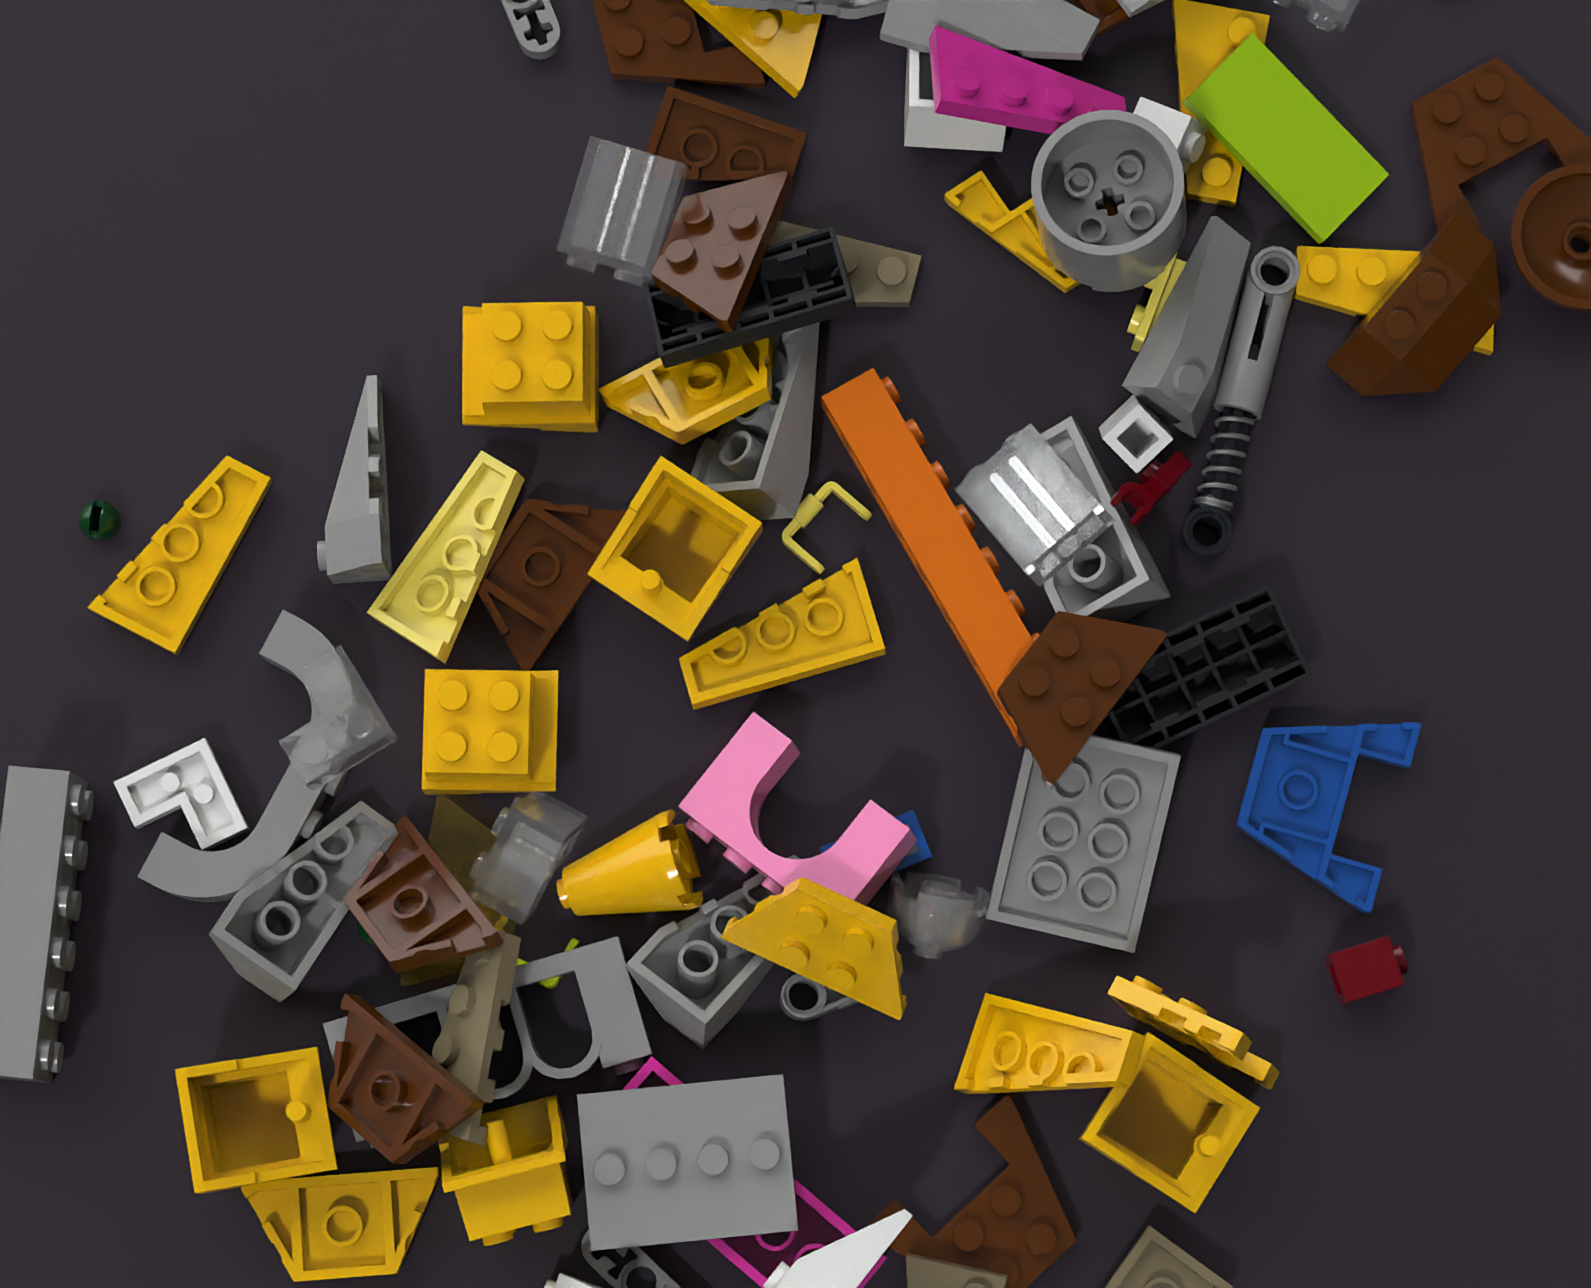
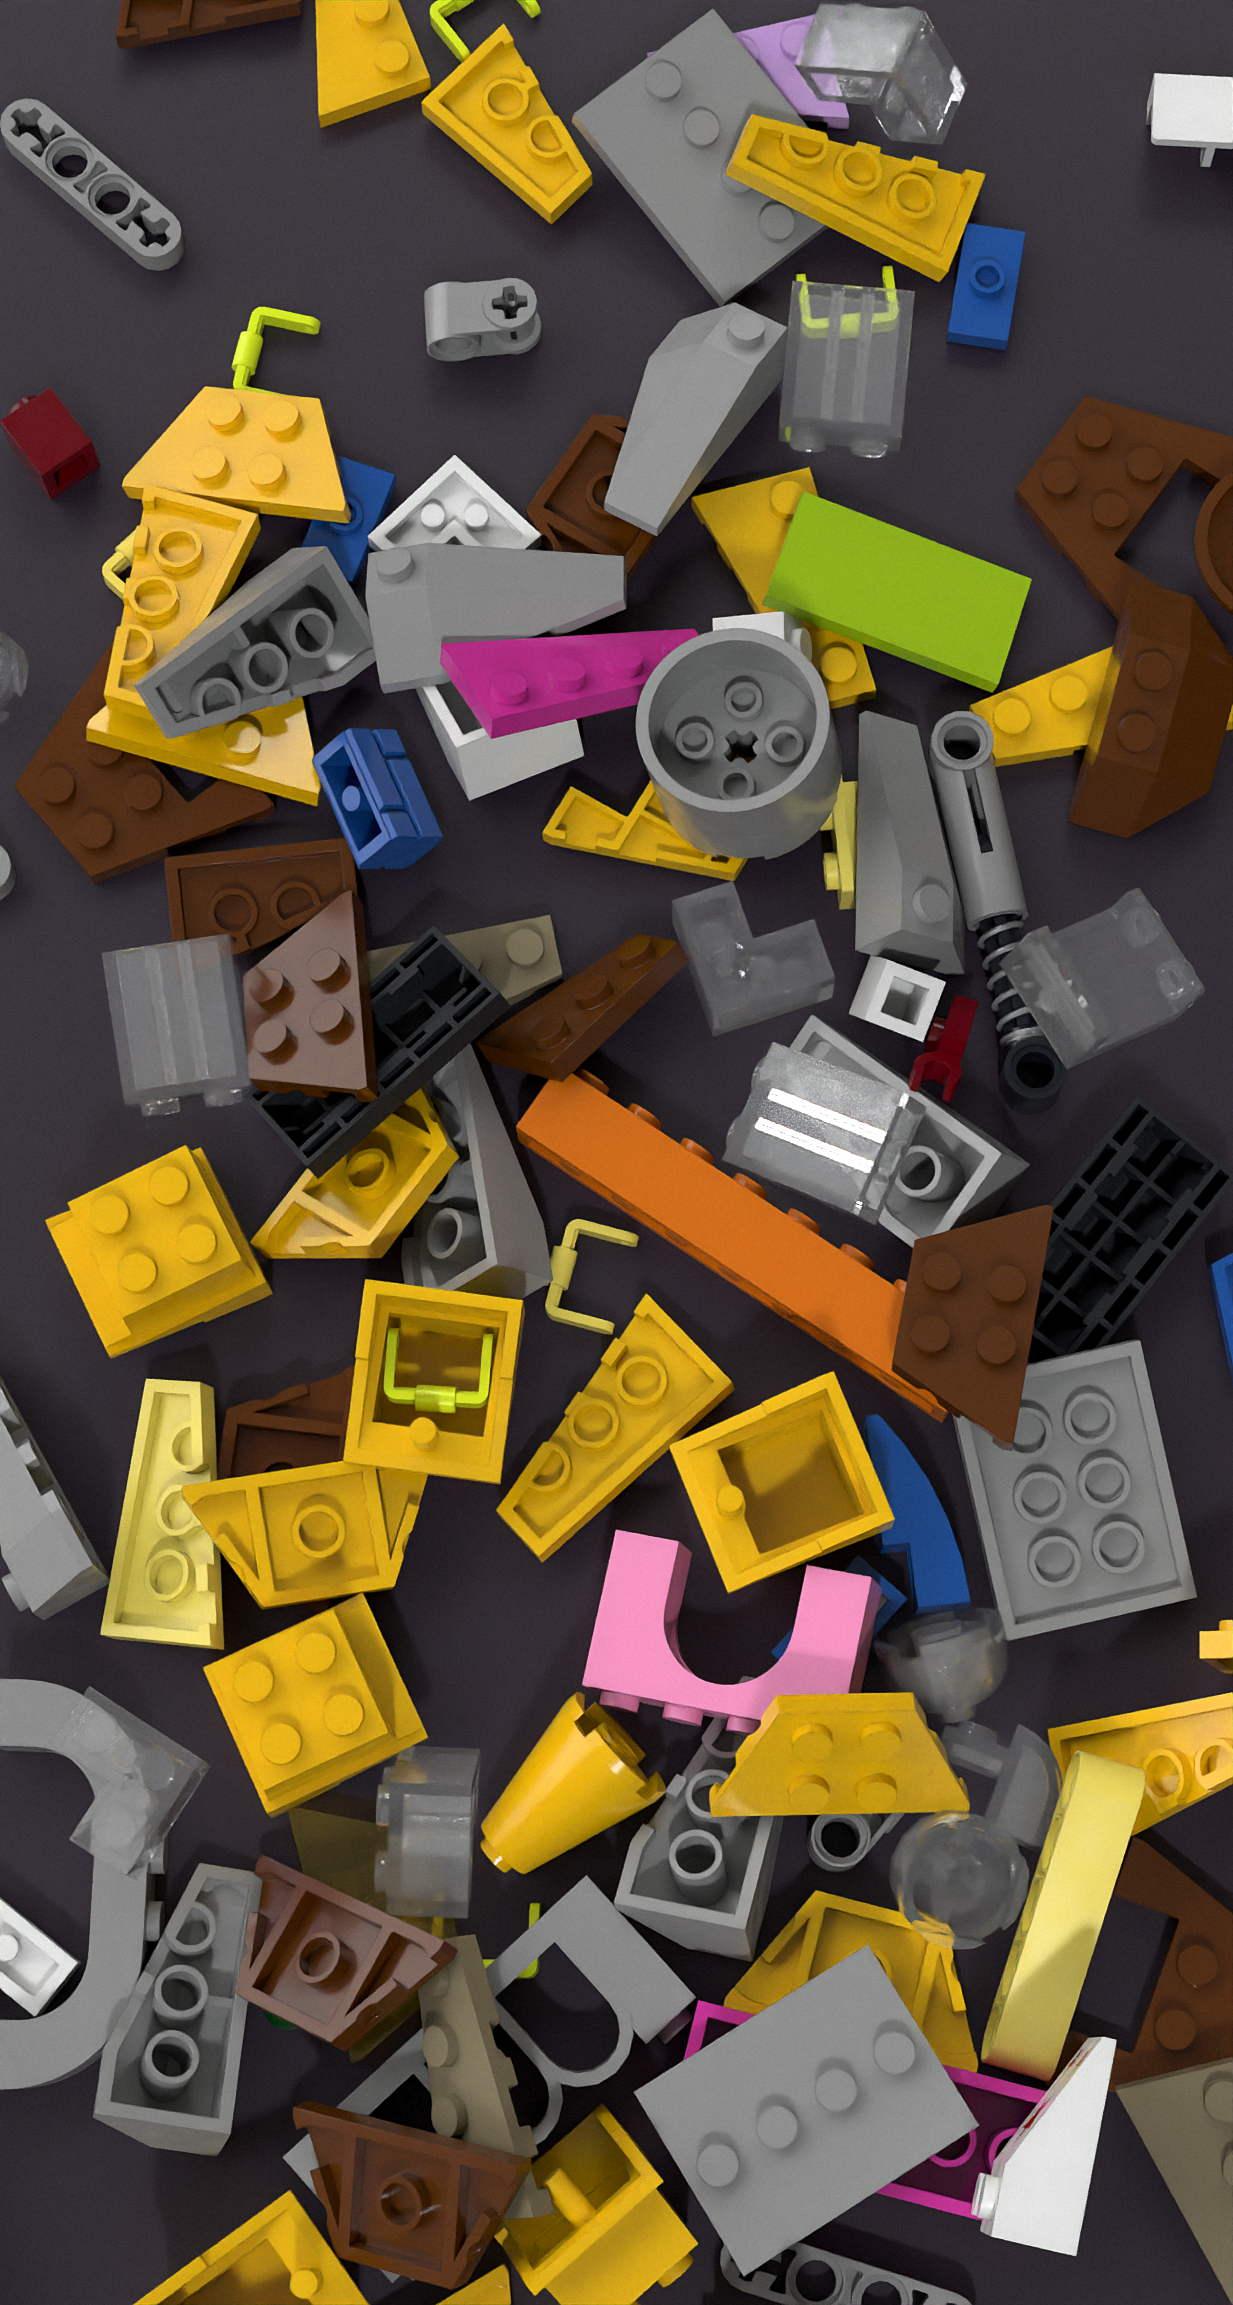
camera: 25 degrees left, 5 degrees down
(544, 610) = (311, 1529): none -> yellow wing
(672, 560) = (433, 1397): none -> neon yellow piece
(811, 1093) = (836, 1927): none -> yellow wing
(838, 114) = (377, 798): none -> blue brick
(869, 1062) = (958, 1878): none -> clear cylinder
(880, 735) = (782, 1483): none -> yellow piece
(909, 337) = (582, 1013): none -> reddish brown wing
(928, 1121) = (1063, 1915): none -> light yellow beam
(949, 1022) = (1023, 1775): none -> clear brick
(963, 805) = (919, 1524): none -> blue slope
(1035, 367) = (745, 976): none -> clear brick
(1288, 489) = (1102, 979): none -> clear panel

